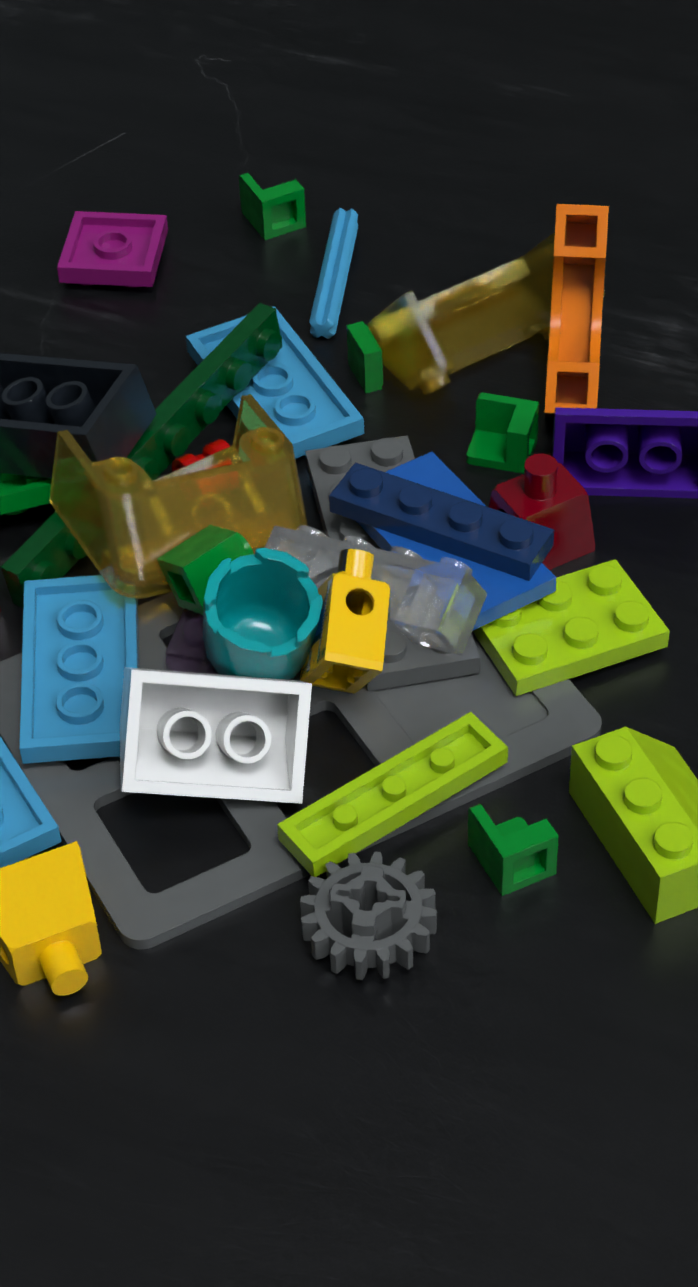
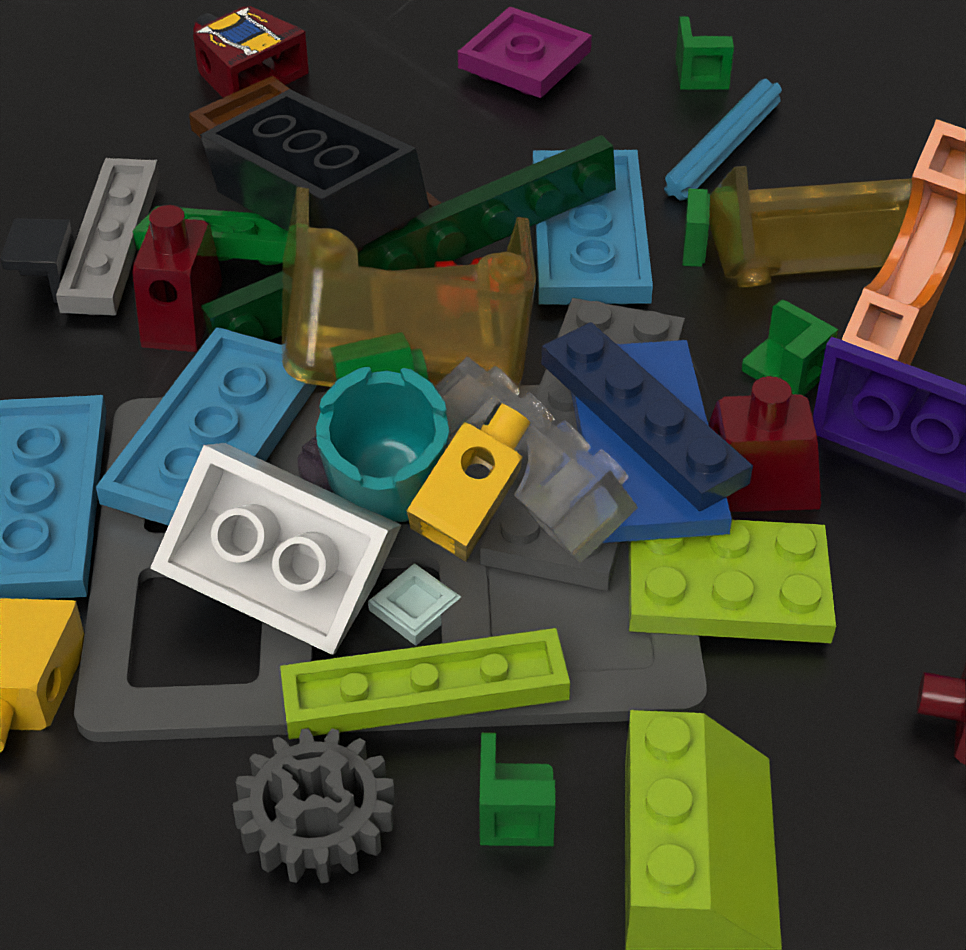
camera: 25 degrees right, 0 degrees up
(334, 742) = (413, 603): none -> light aqua tile

